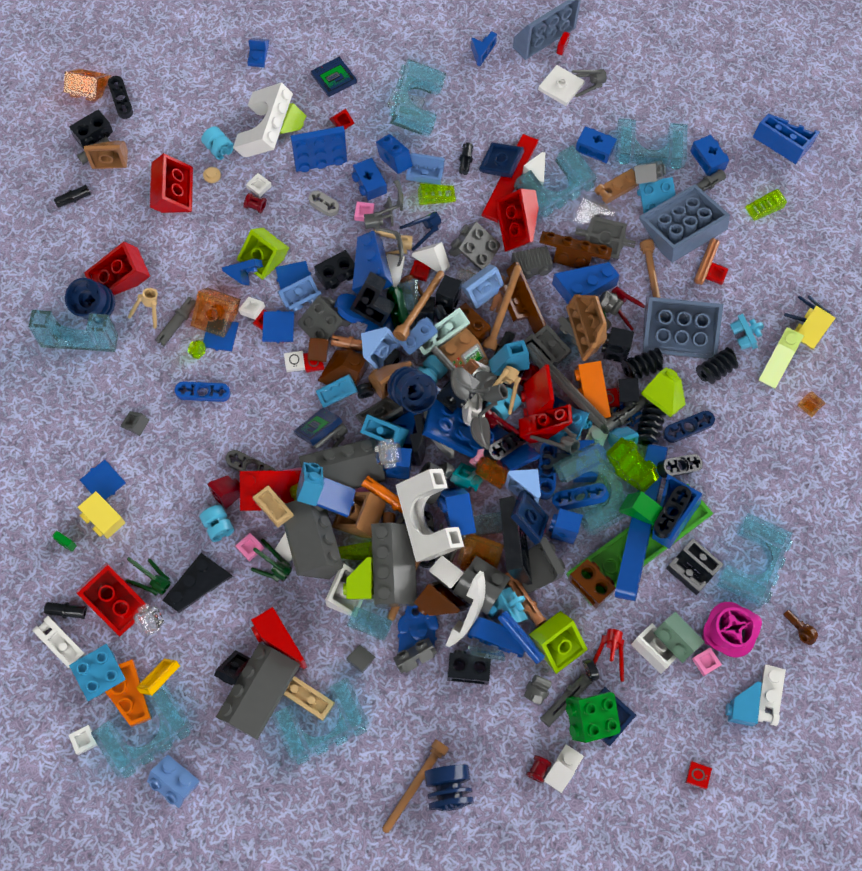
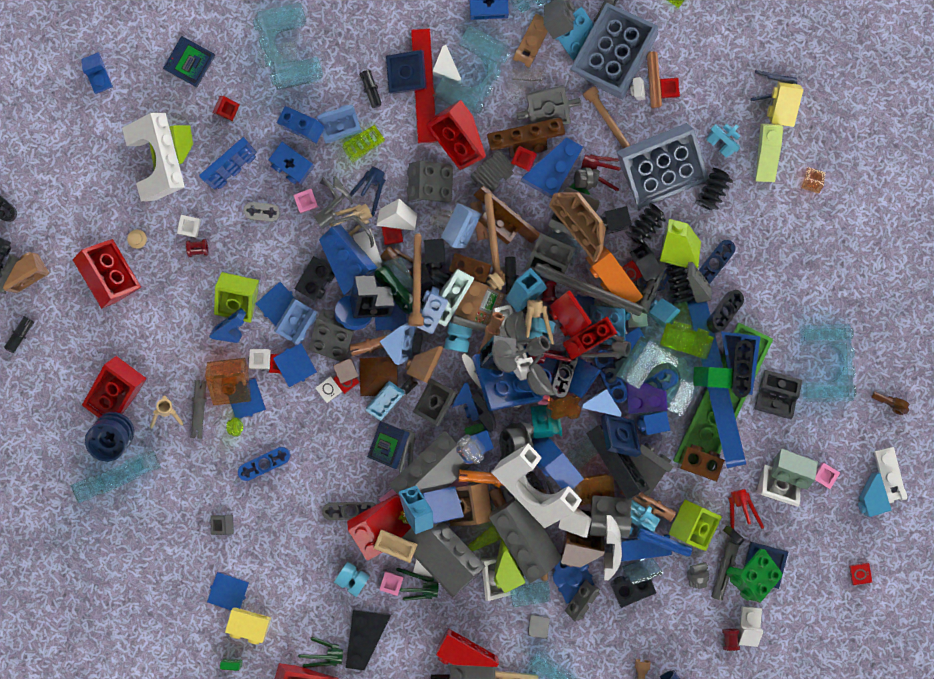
camera: 25 degrees left, 20 degrees up
(217, 142) = (123, 203): medium azure wheel -> none
(225, 490) = (342, 547): dark red slope -> none
(383, 430) = (453, 423): dark azure slope -> none
(421, 390) = (457, 373): dark blue wheel -> none
(487, 340) = (495, 281): none -> tan plate
(564, 260) = (523, 158): none -> red tile
(569, 498) = (646, 399): none -> dark purple wing
(666, 429) = (700, 287): none -> dark grey slope
(689, 259) = (638, 89): none -> white plate
(729, 612) = (820, 448): dark pink piece -> none

